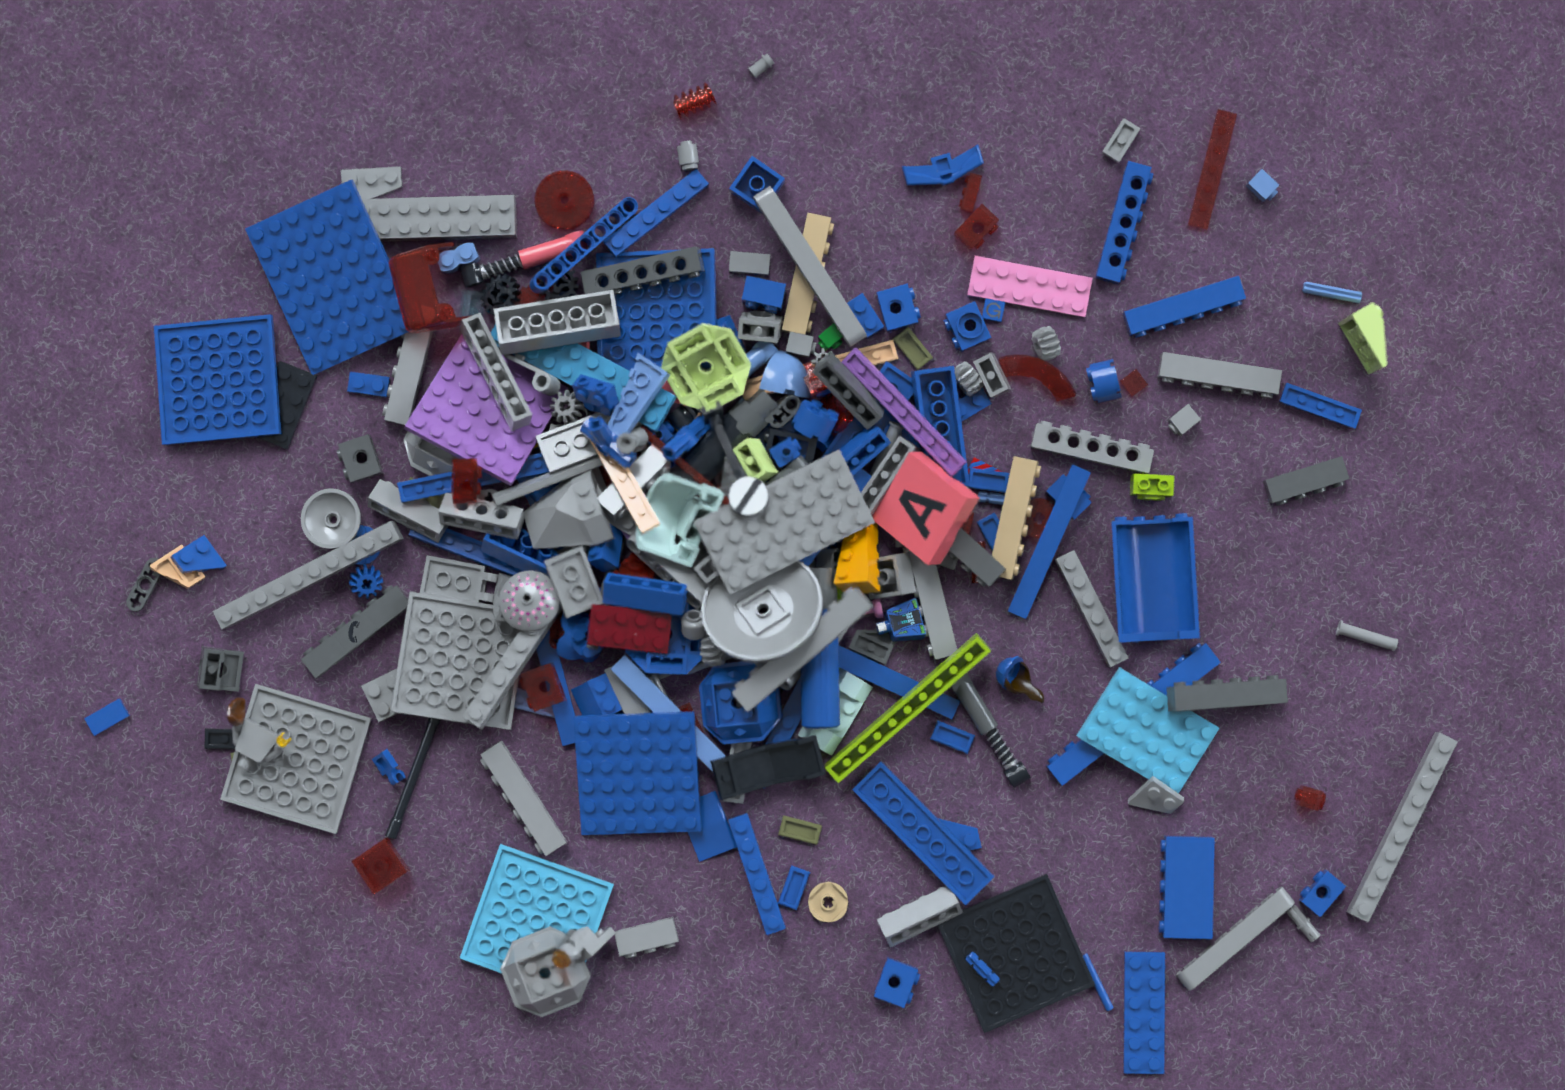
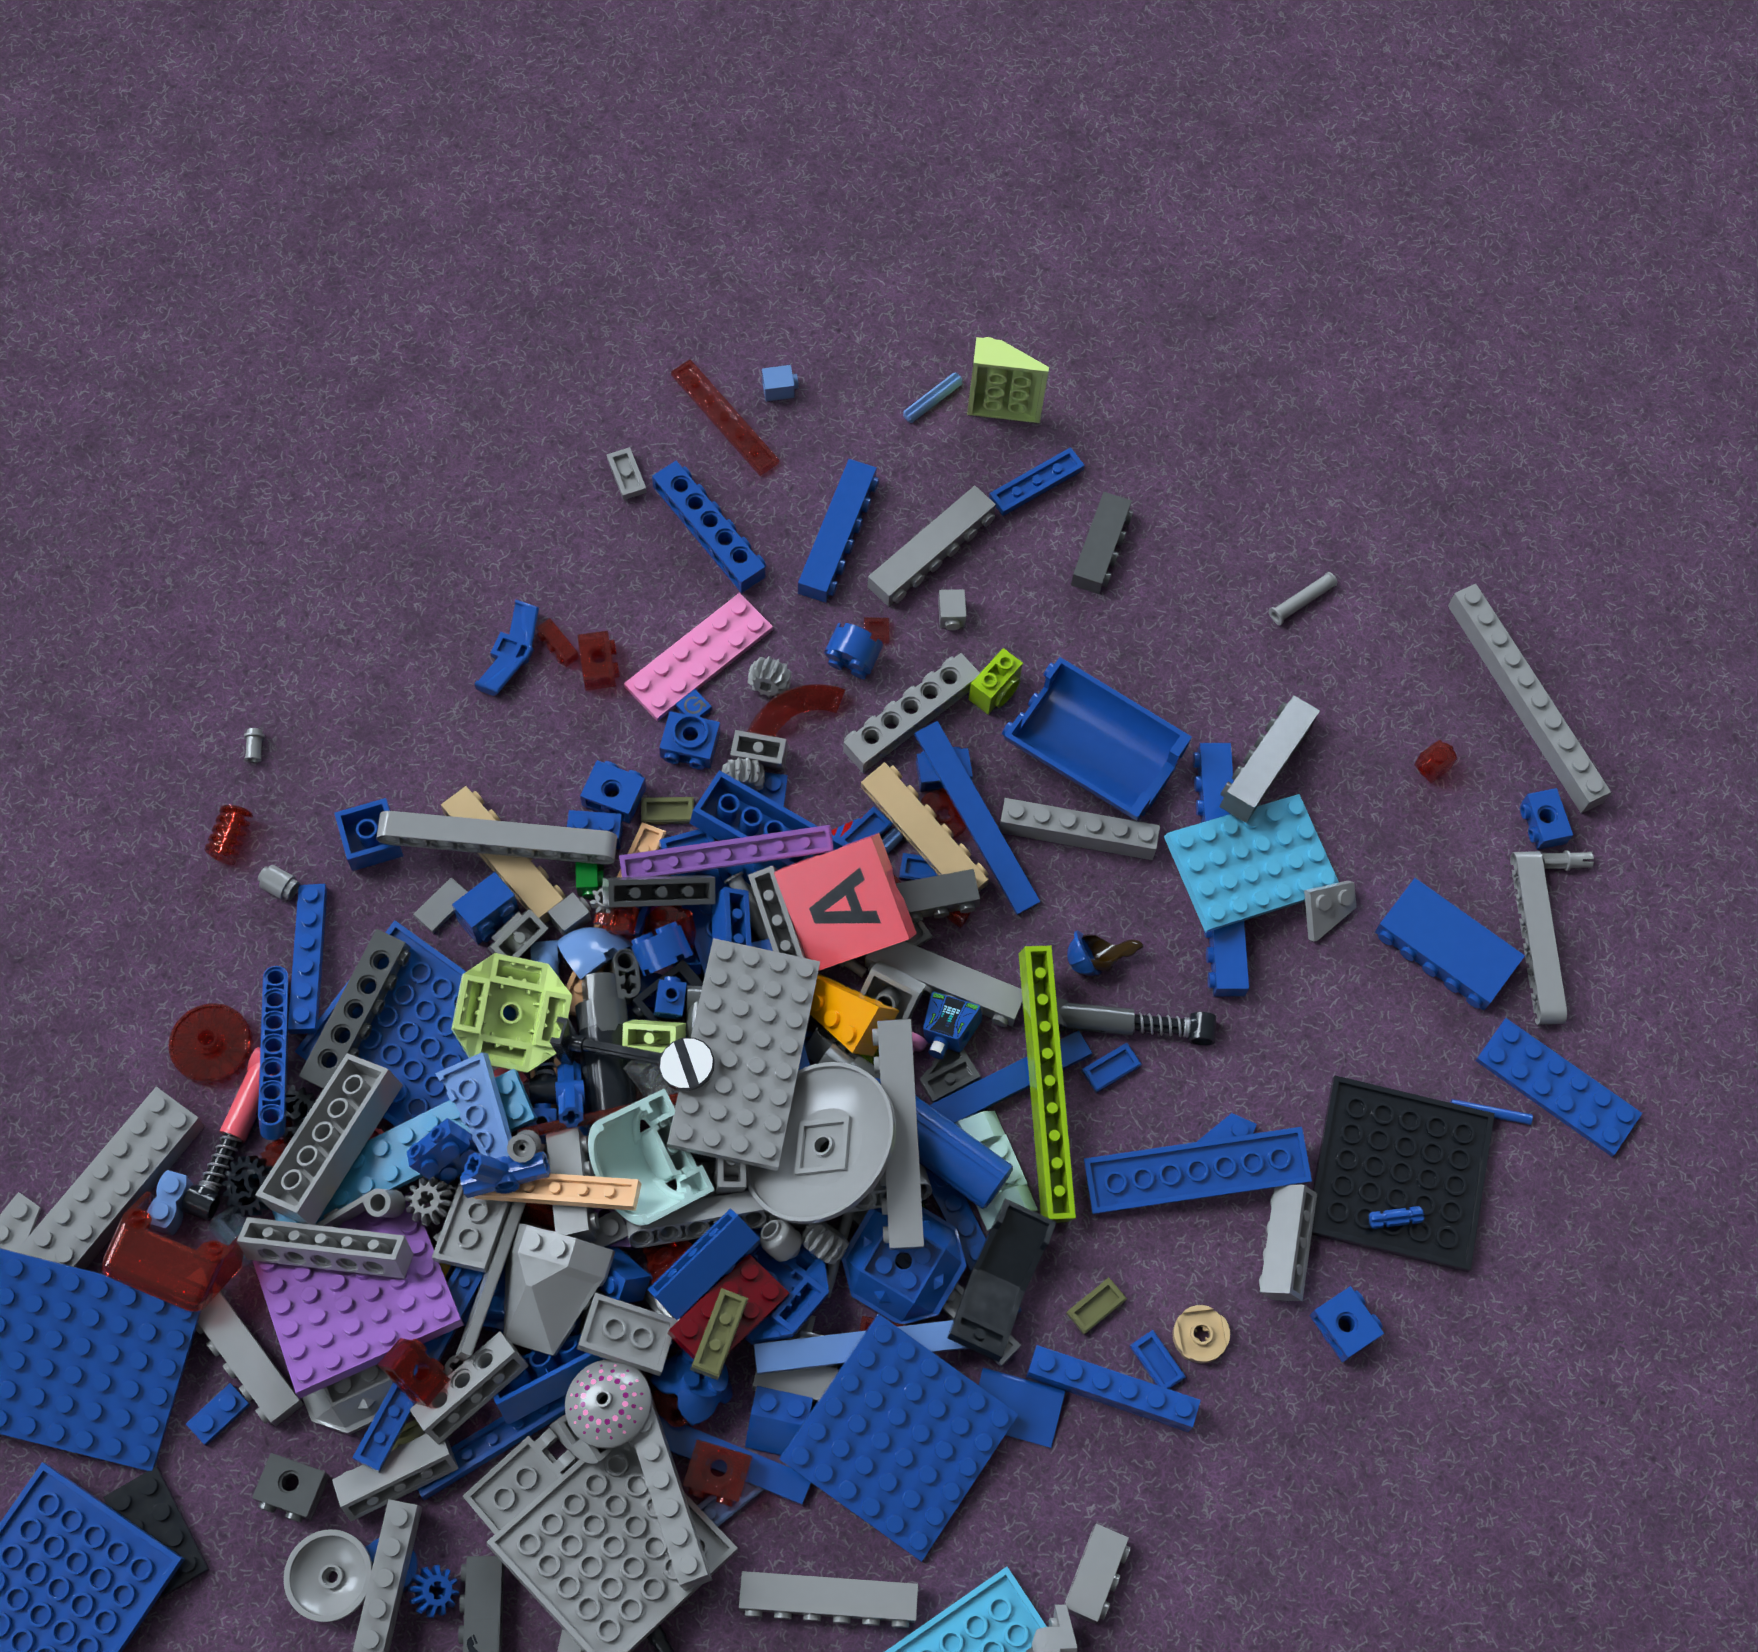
camera: 65 degrees left, 20 degrees down
(610, 634) = (719, 1334): none -> olive tile

